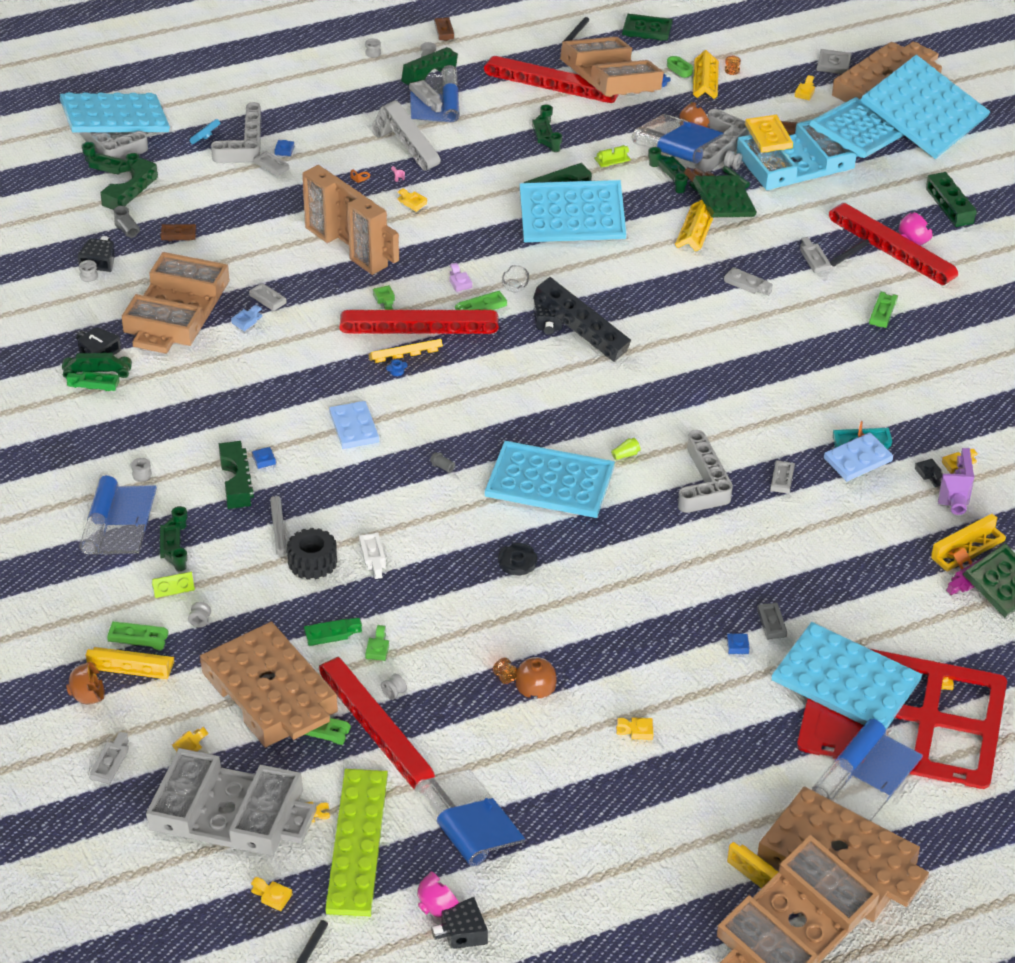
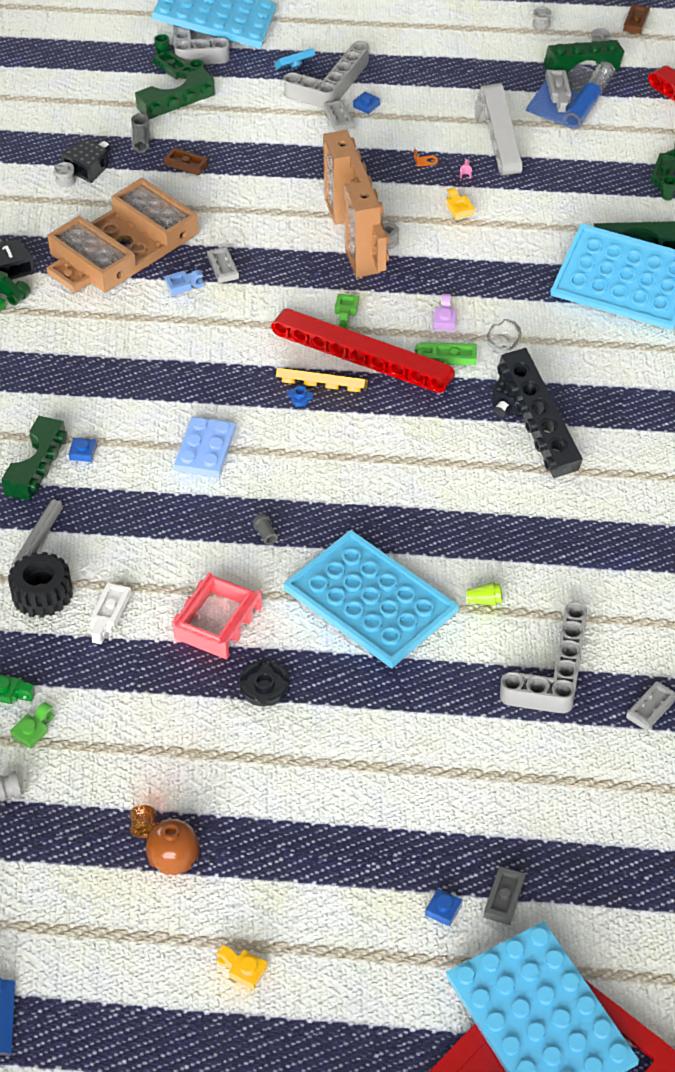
camera: 30 degrees right, 5 degrees up
(453, 546) = (208, 641): none -> coral window

